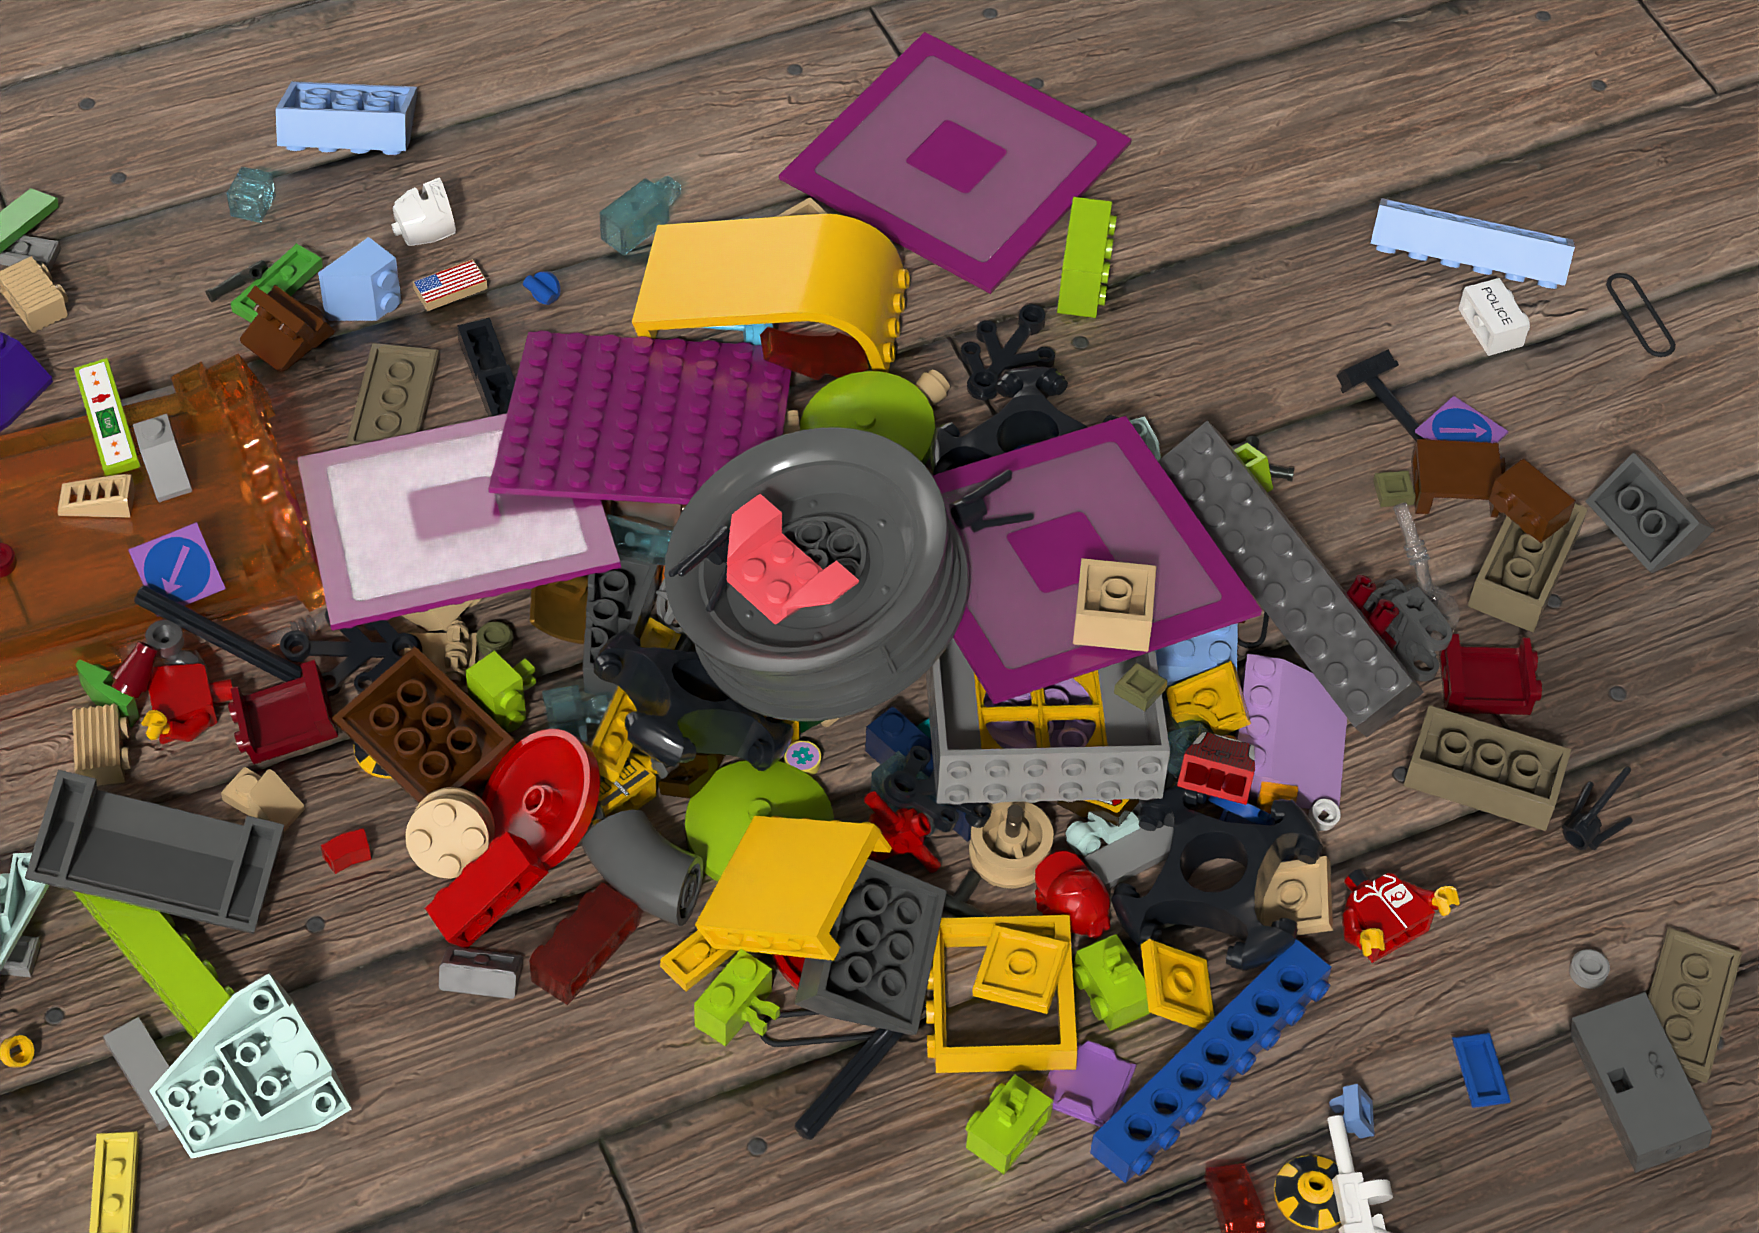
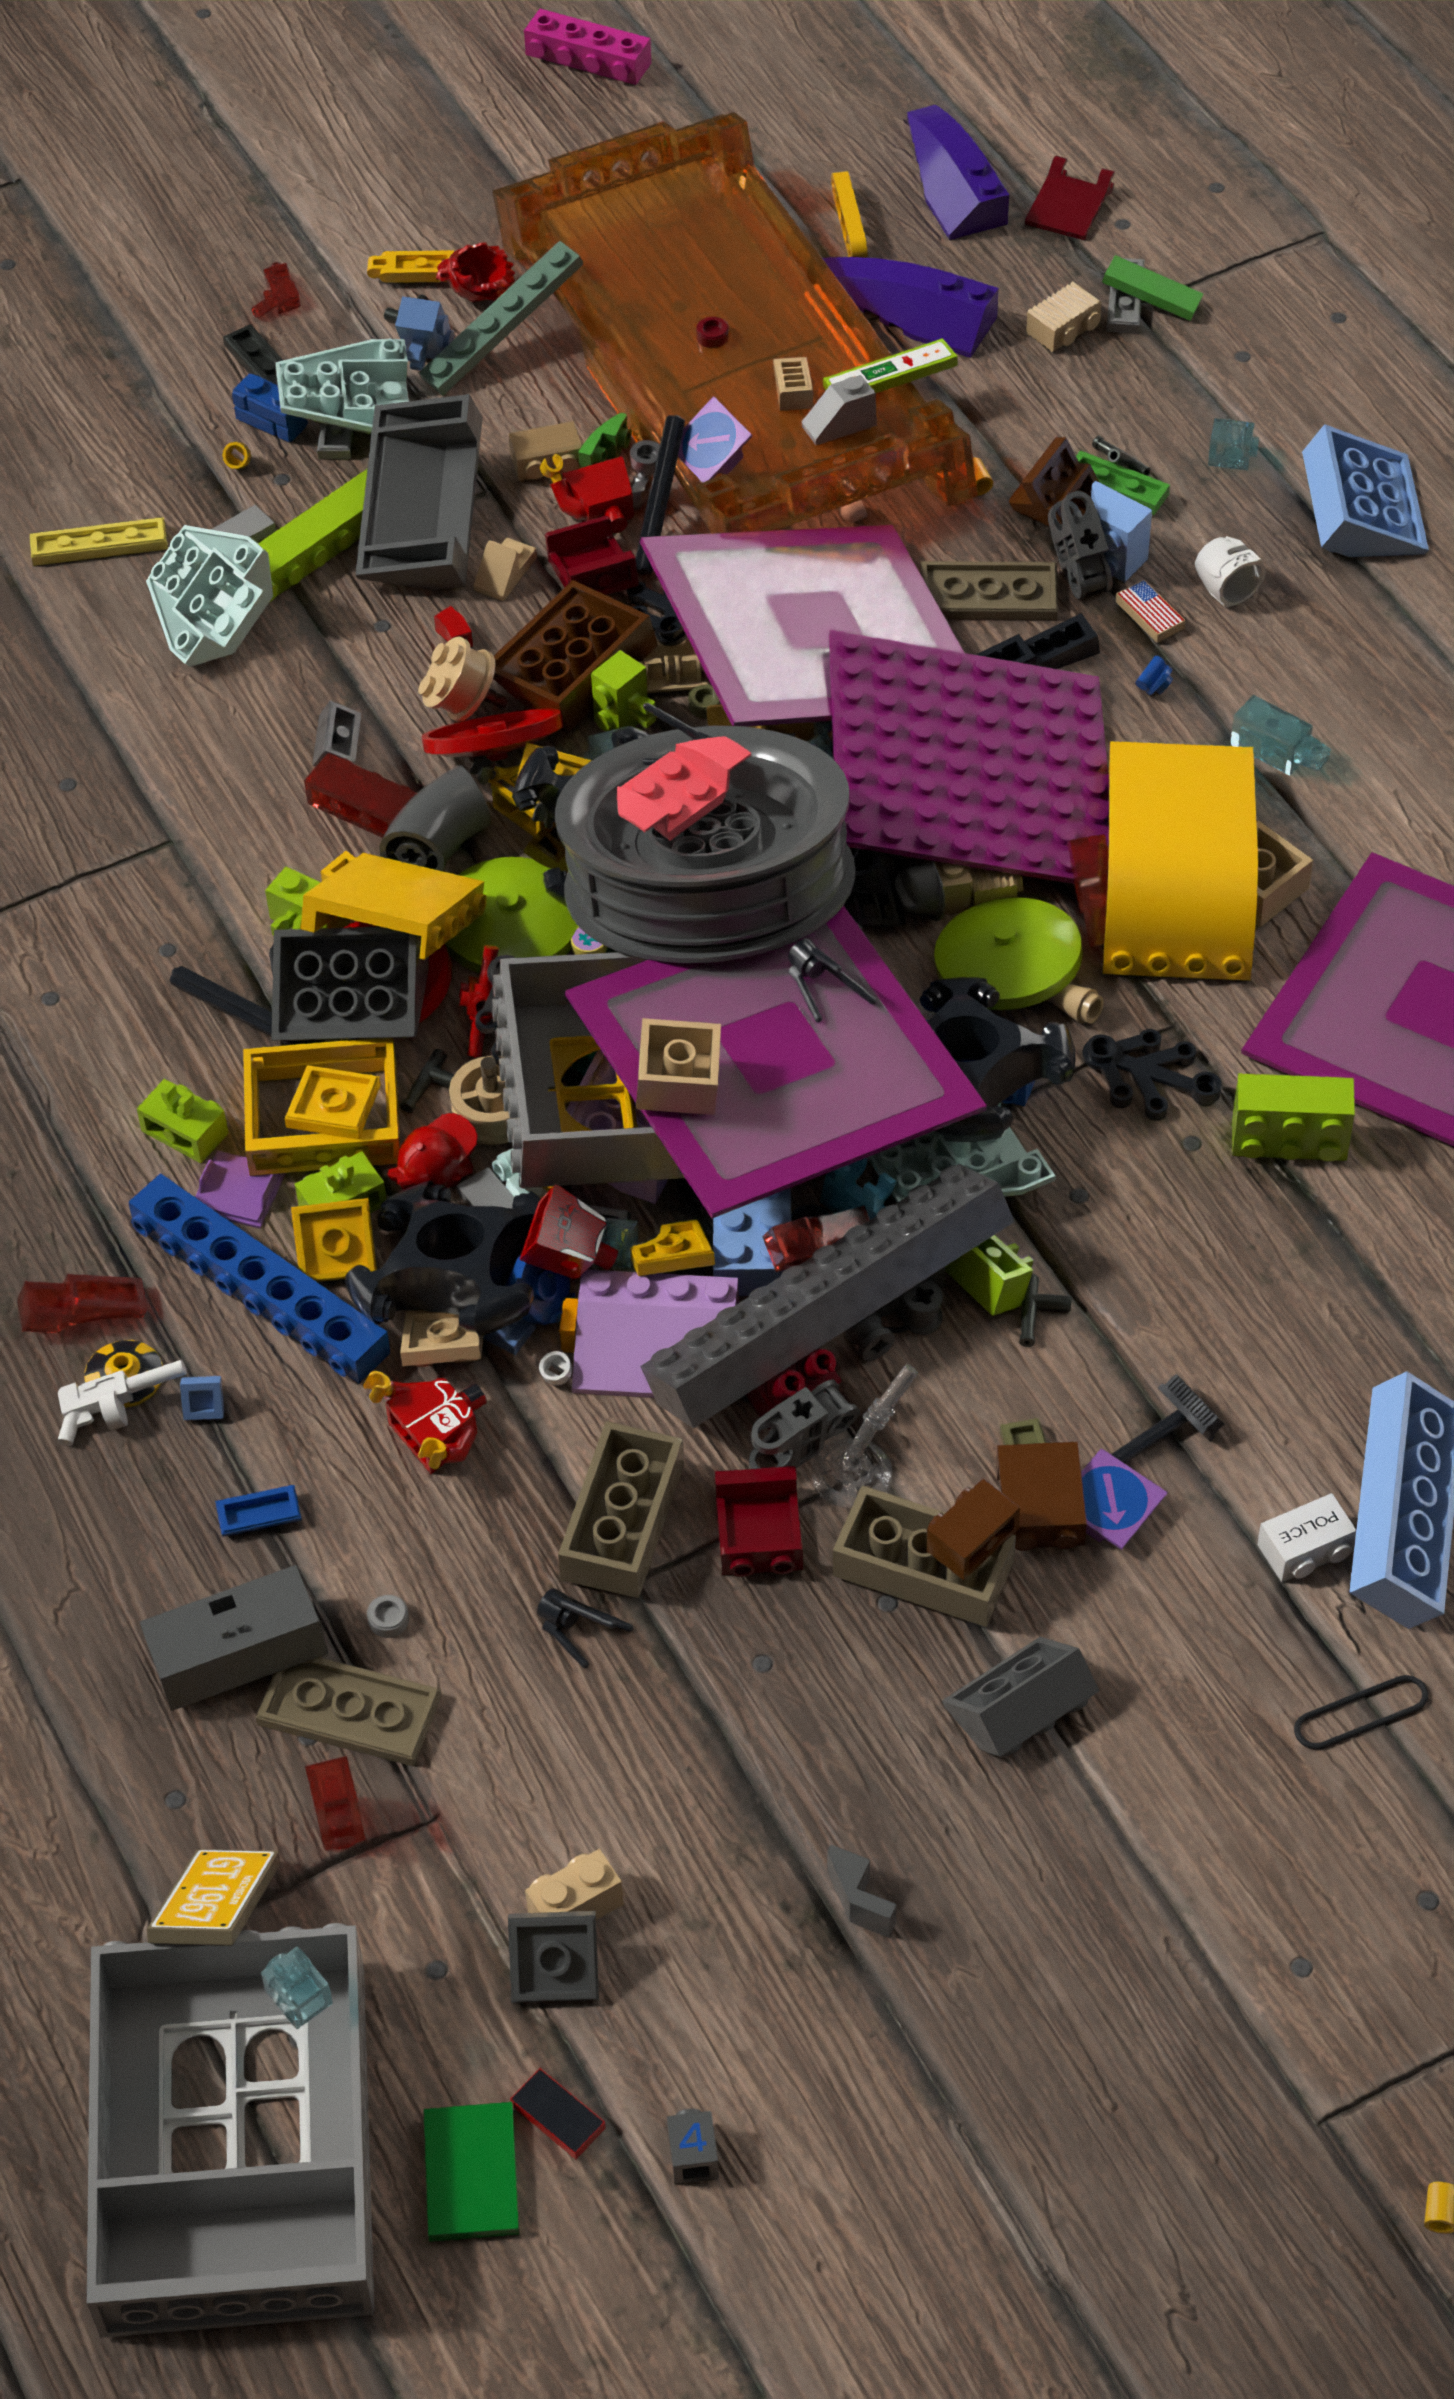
camera: 90 degrees right, 0 degrees up
(135, 671) = (604, 444): dark red cone -> none
(376, 310) = (1083, 554): none -> dark grey piece
(486, 890) = (398, 710): red brick -> none
(1140, 686) = (600, 1113): olive tile -> none

